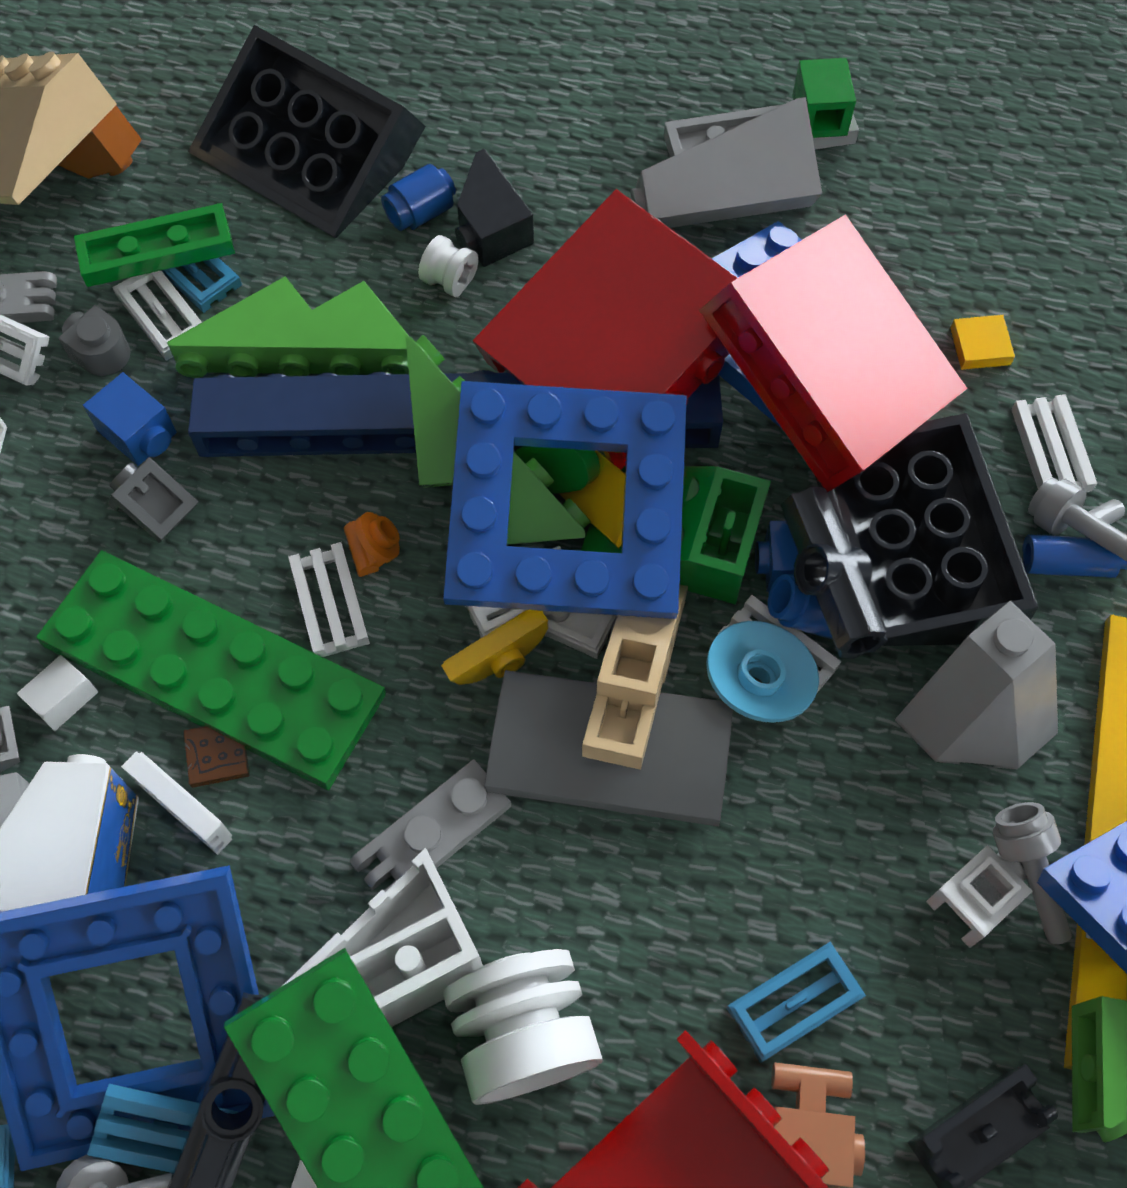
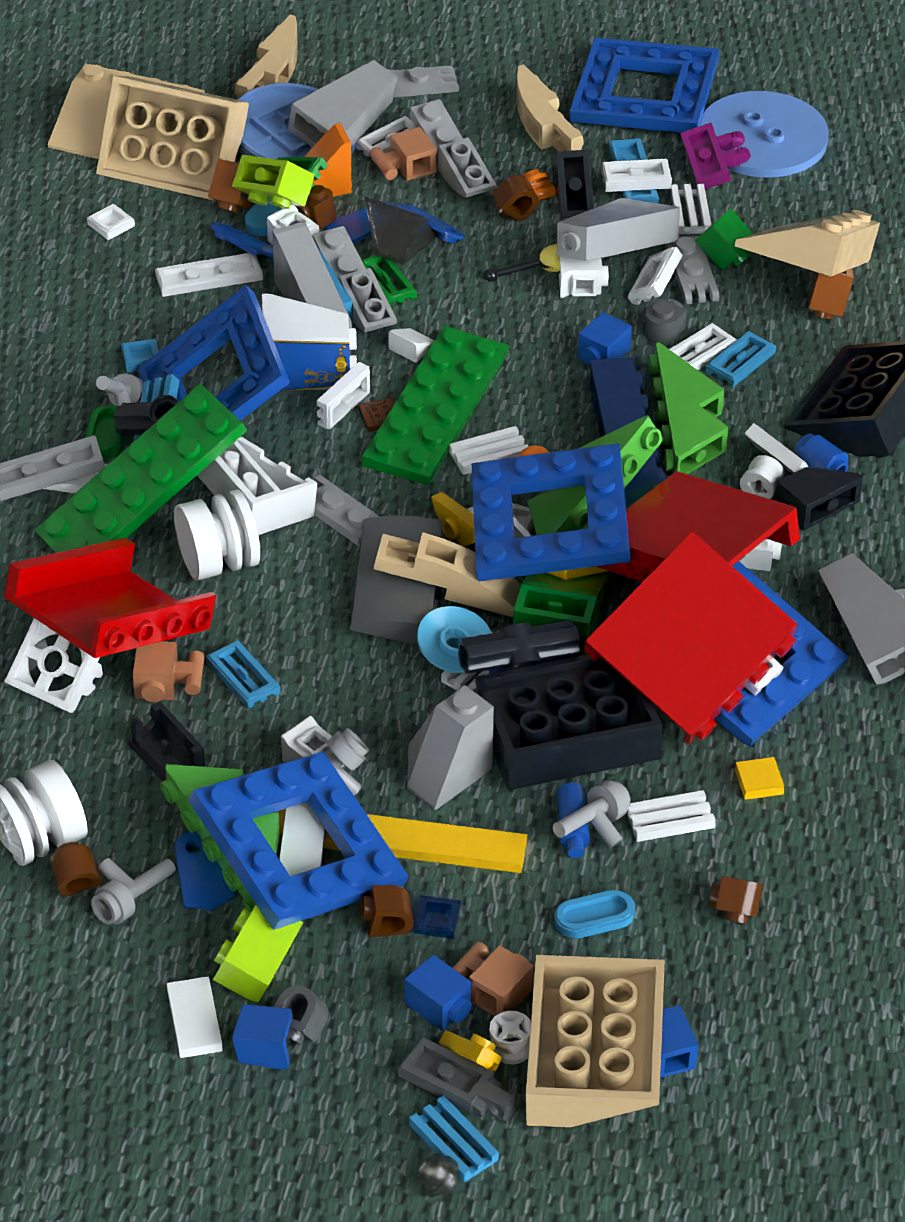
camera: 85 degrees right, 20 degrees down
(151, 498) = (547, 359): dark grey bracket -> none
(153, 245) = (742, 330): green plate -> none
(406, 239) = (774, 449): none -> white tile

